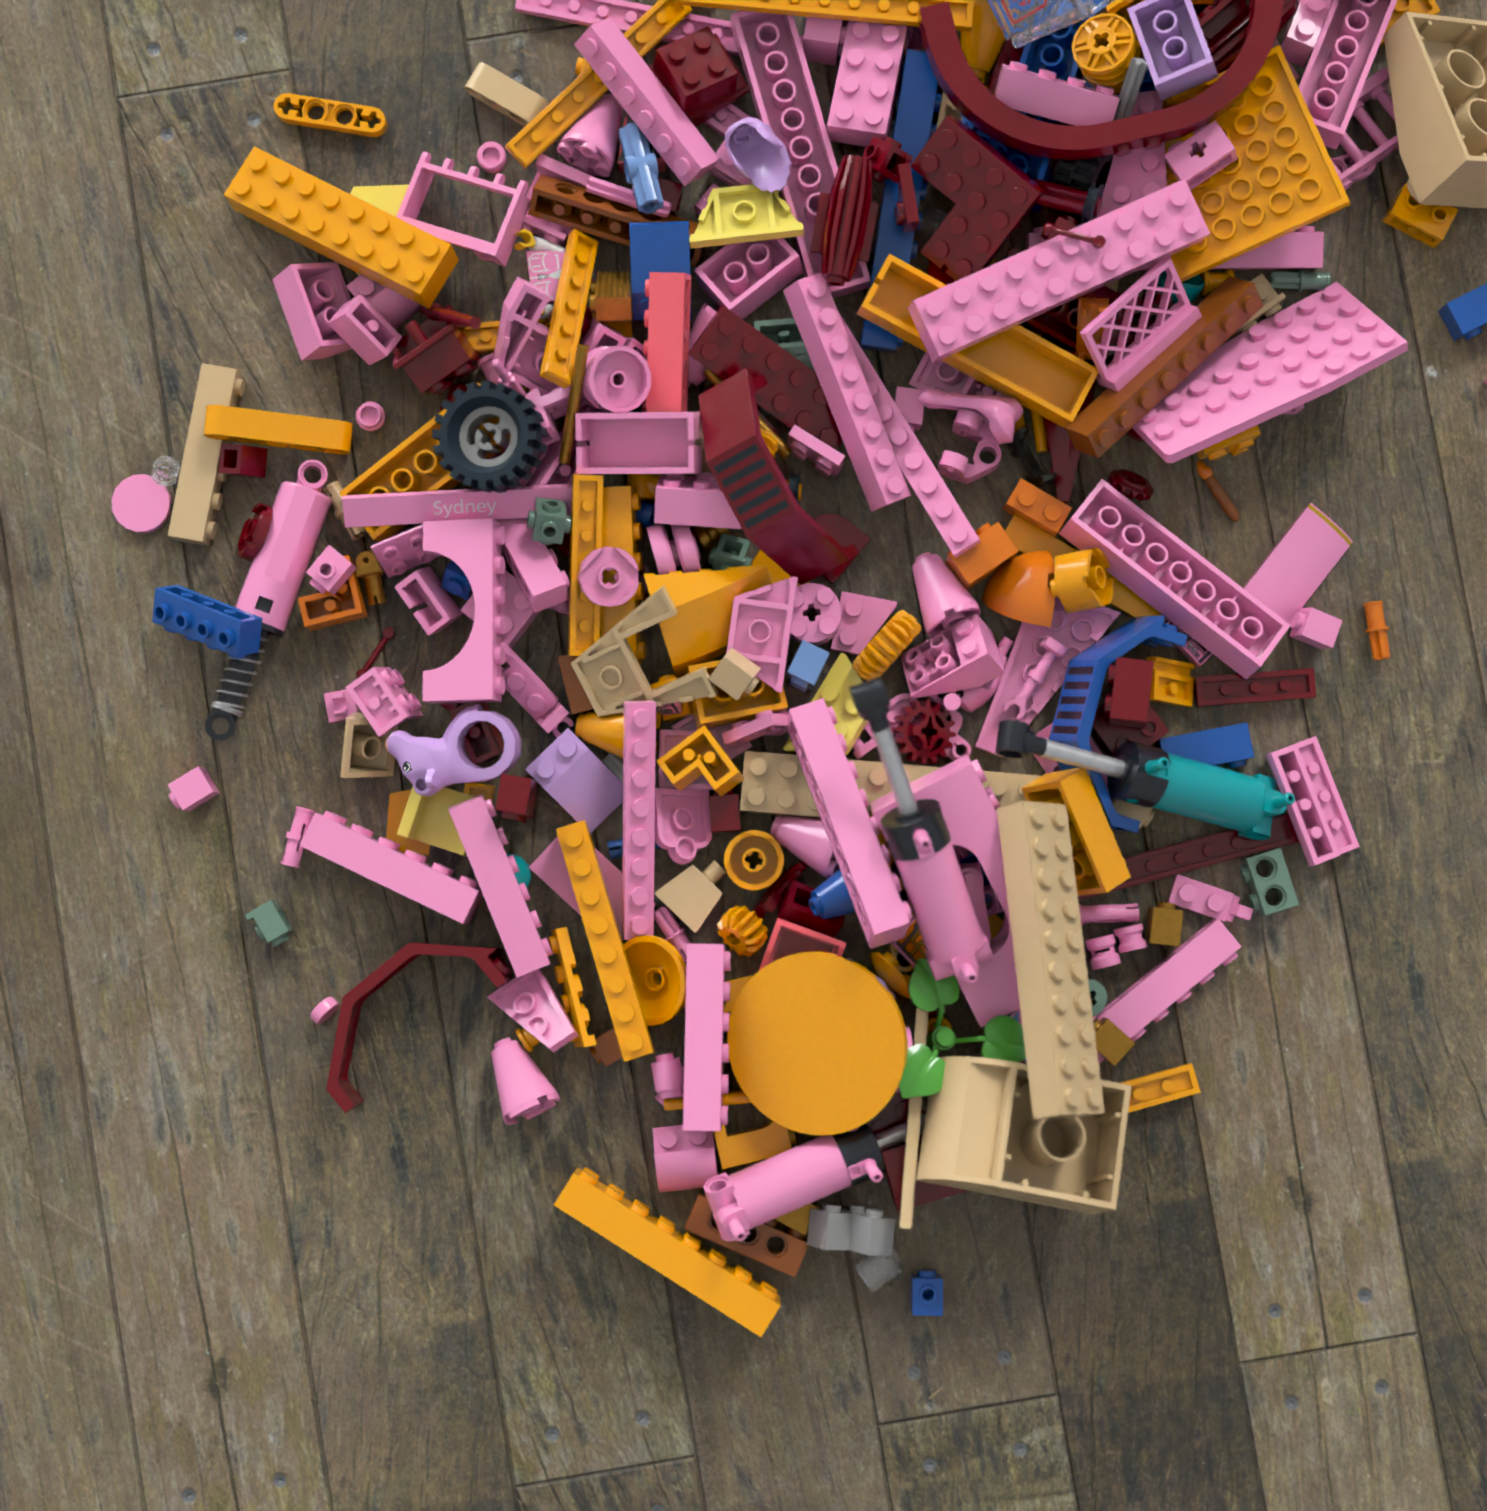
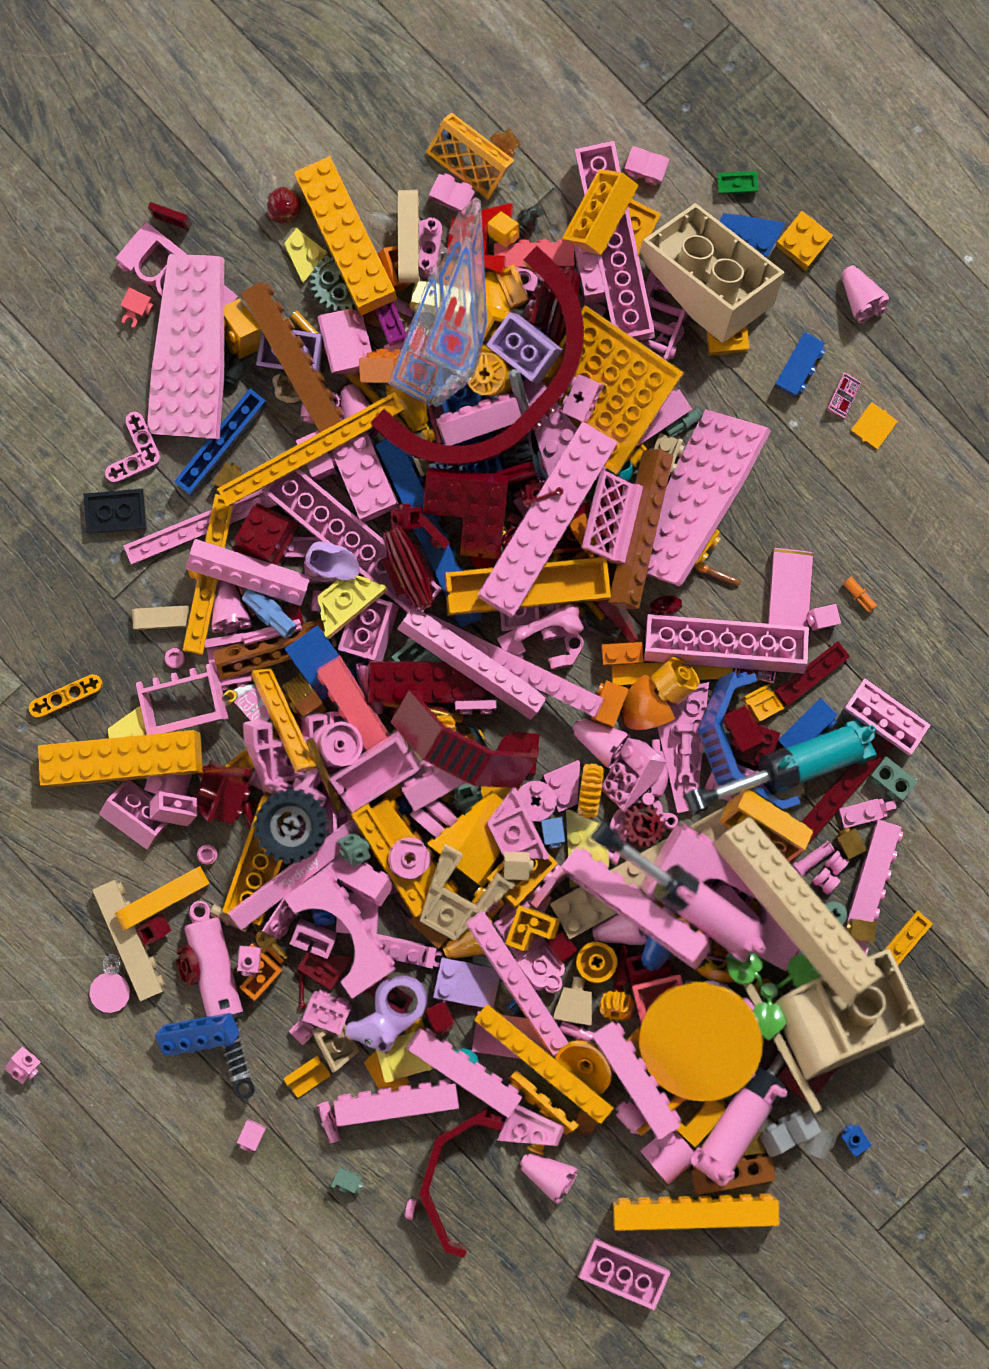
camera: 30 degrees left, 0 degrees up
(309, 763) = (307, 1076): none -> light orange panel
(415, 648) = (324, 970): none -> dark red wing
(530, 1266) = (624, 1273): none -> bright pink brick

